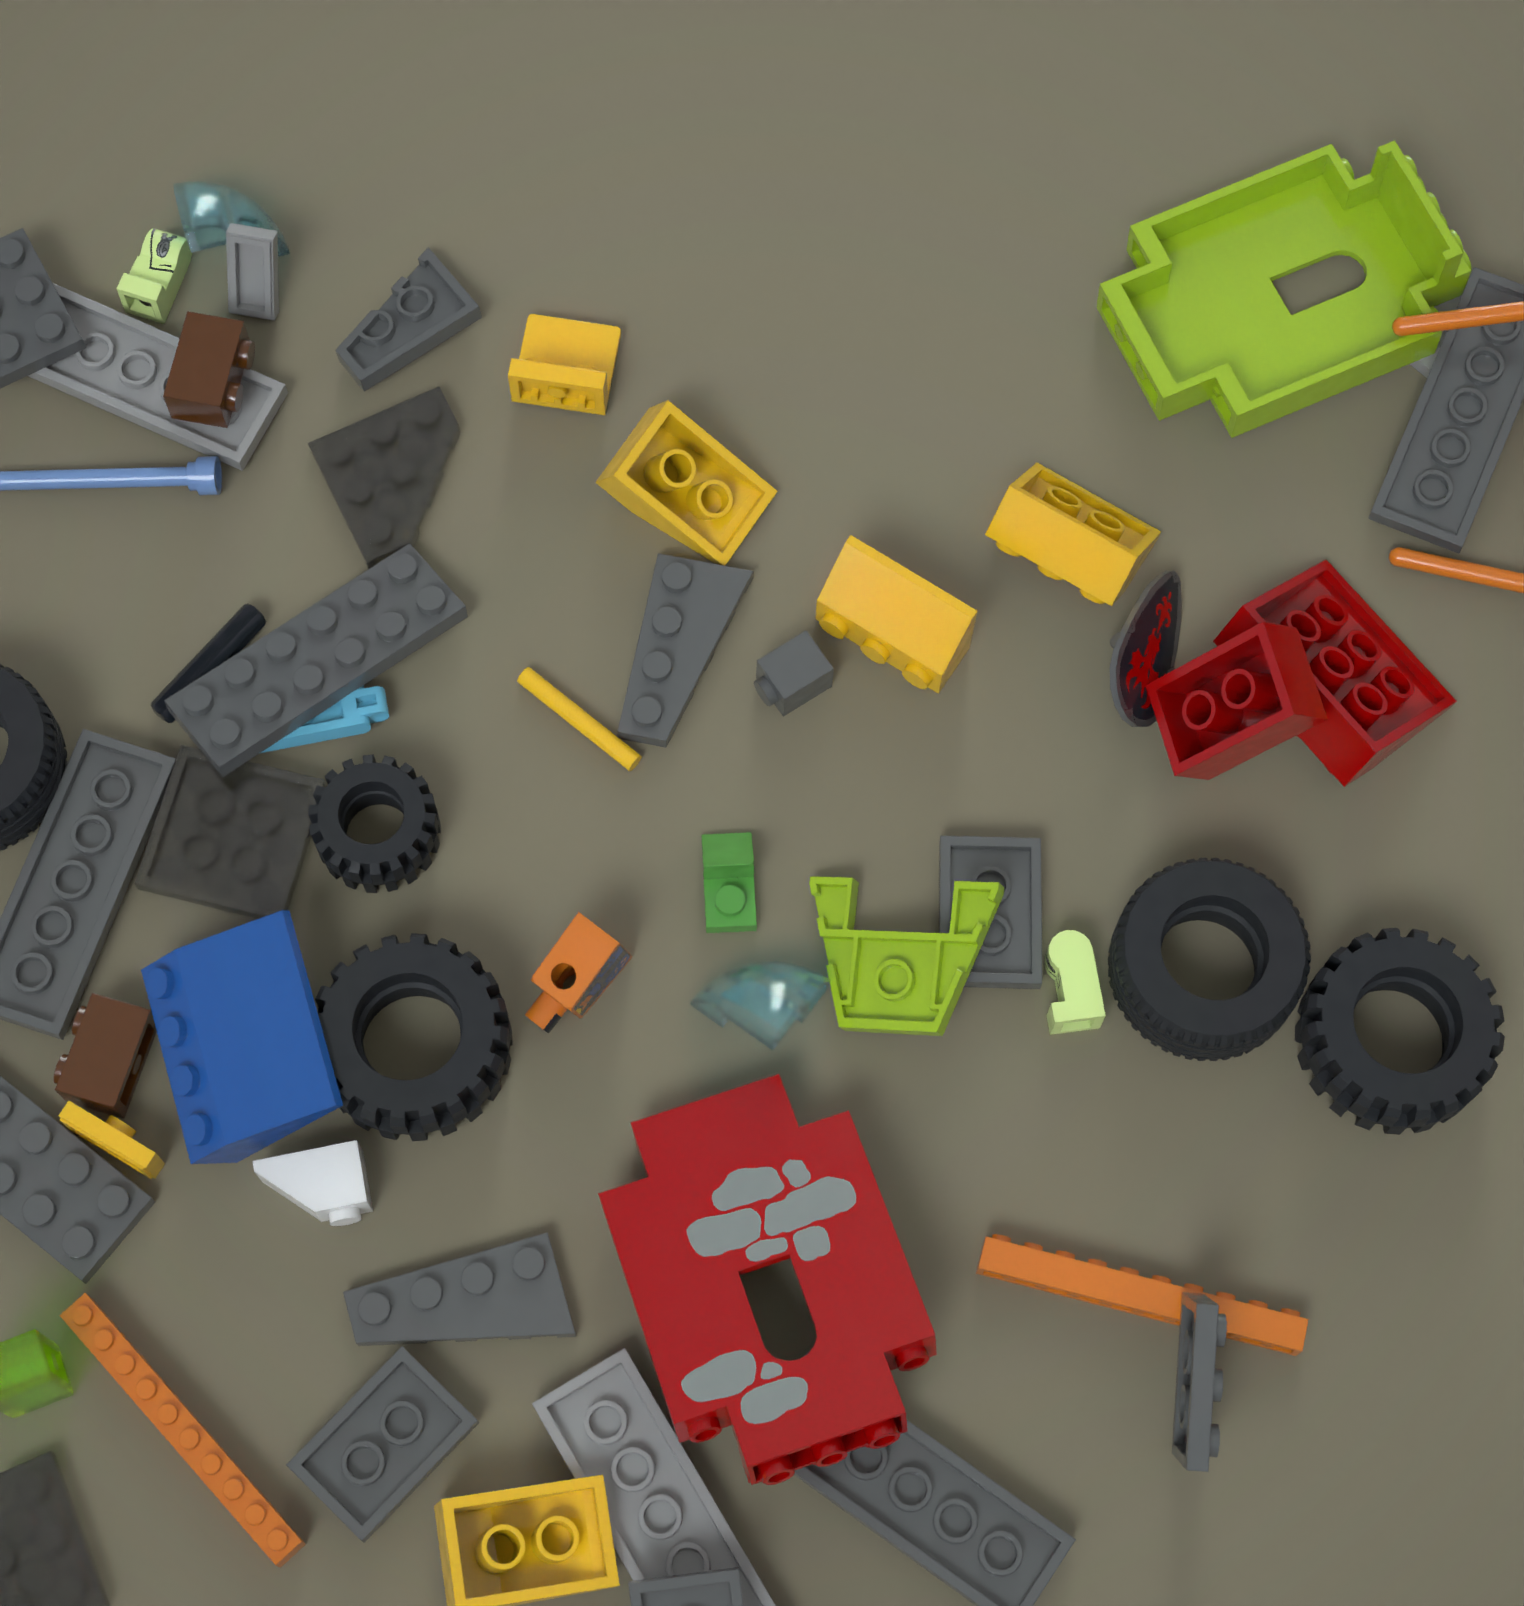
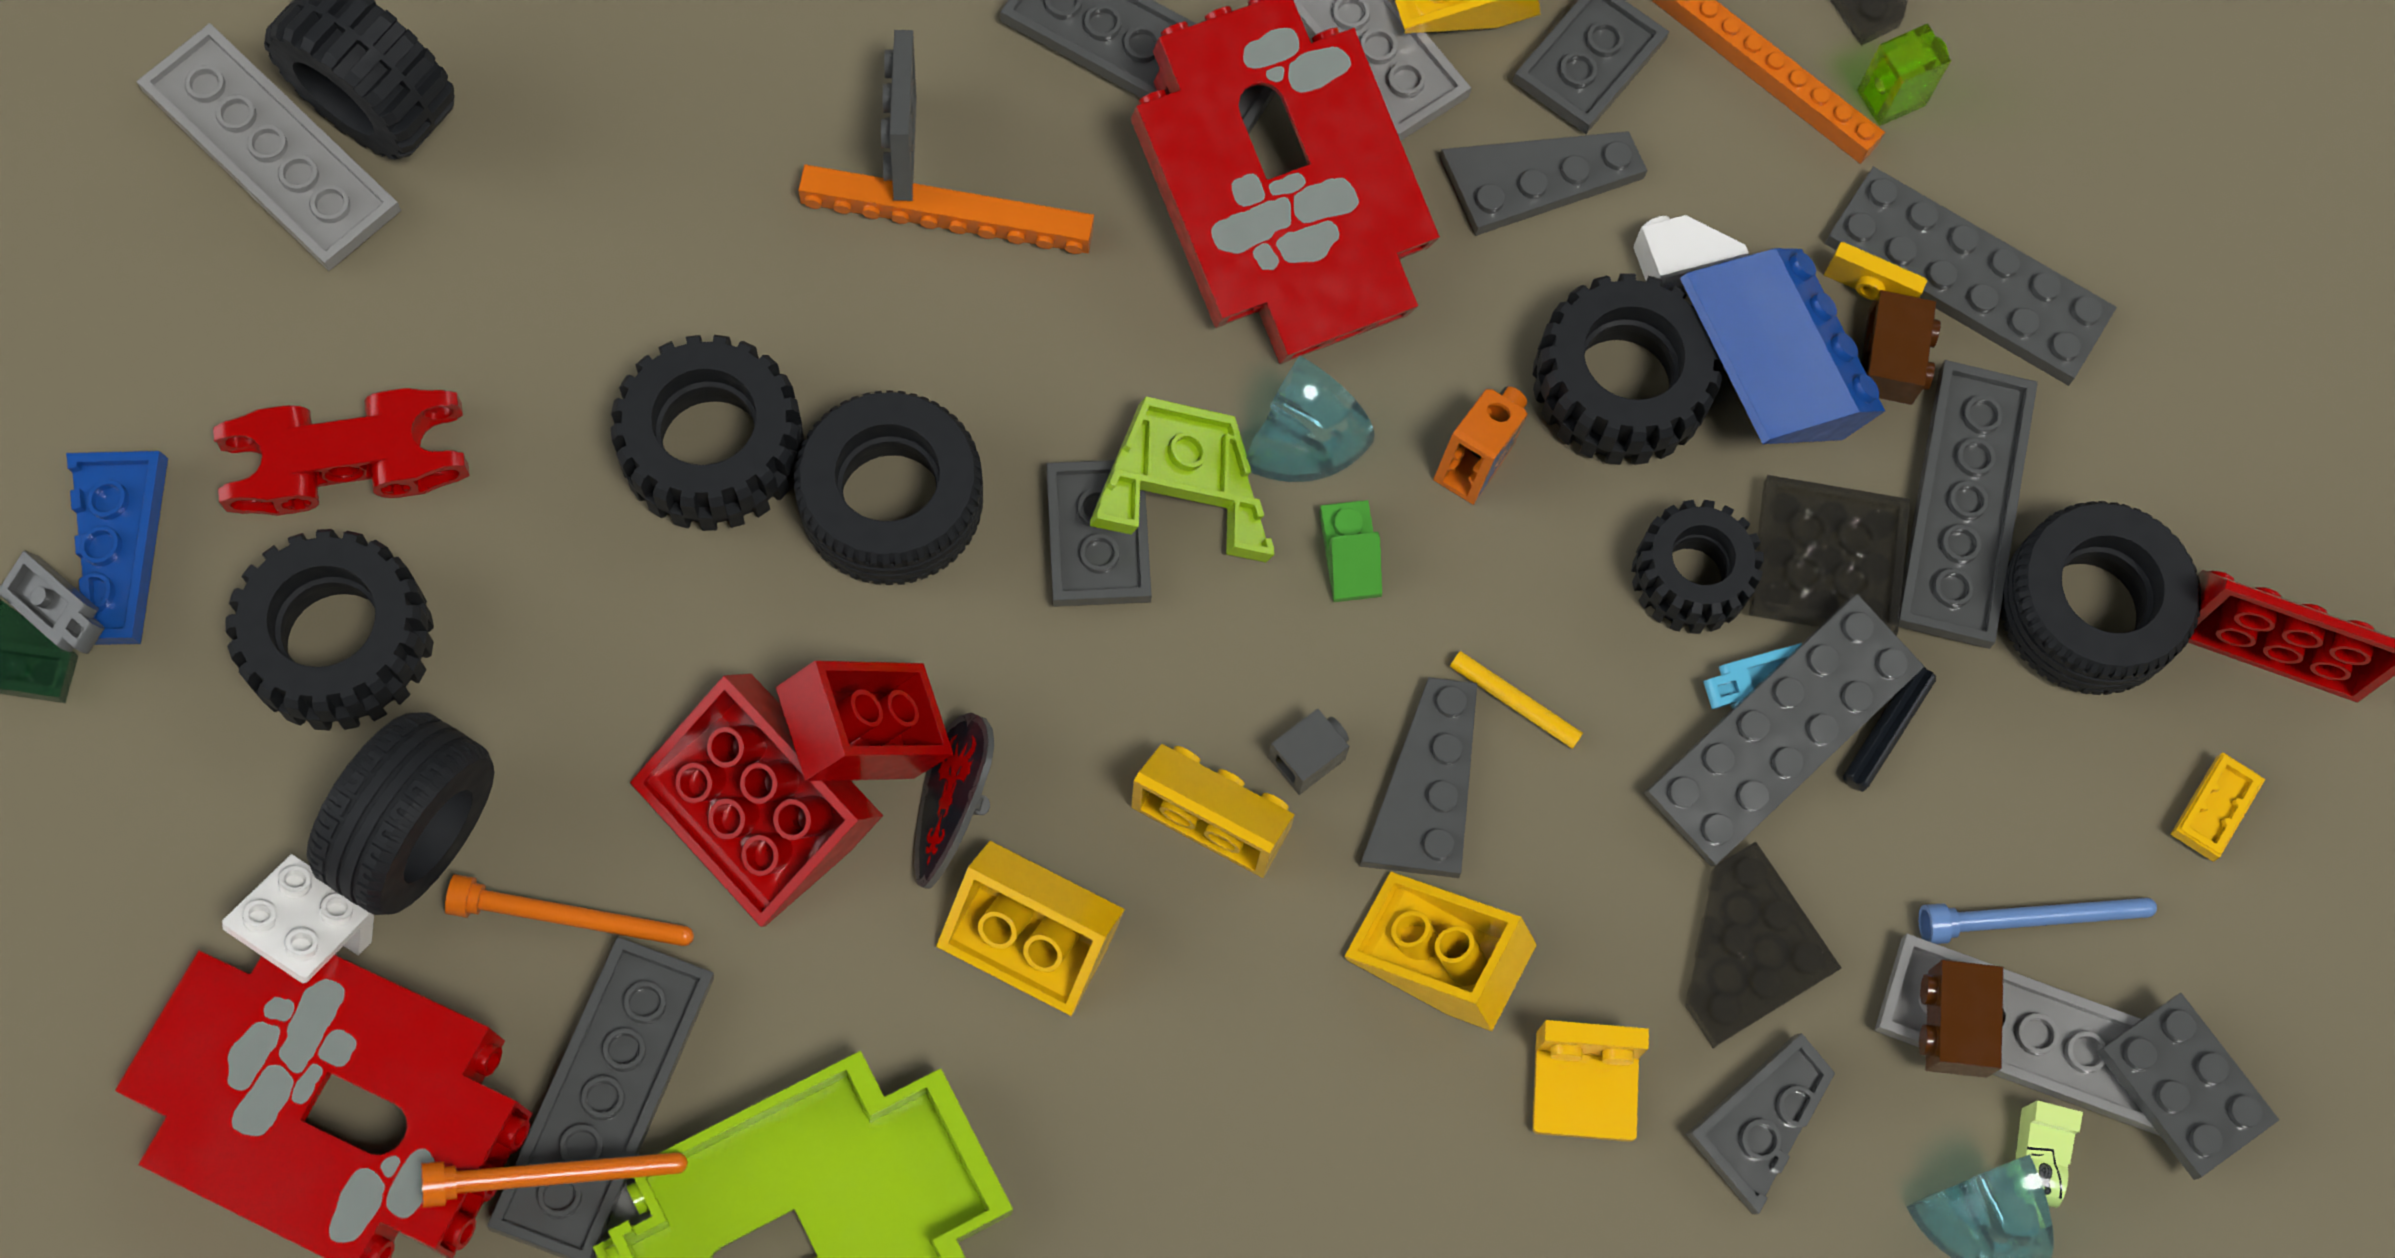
camera: 170 degrees right, 0 degrees up
(252, 271) = (1942, 1145): light grey tile -> none
(1077, 984) = (1017, 484): yellowish green leg -> none

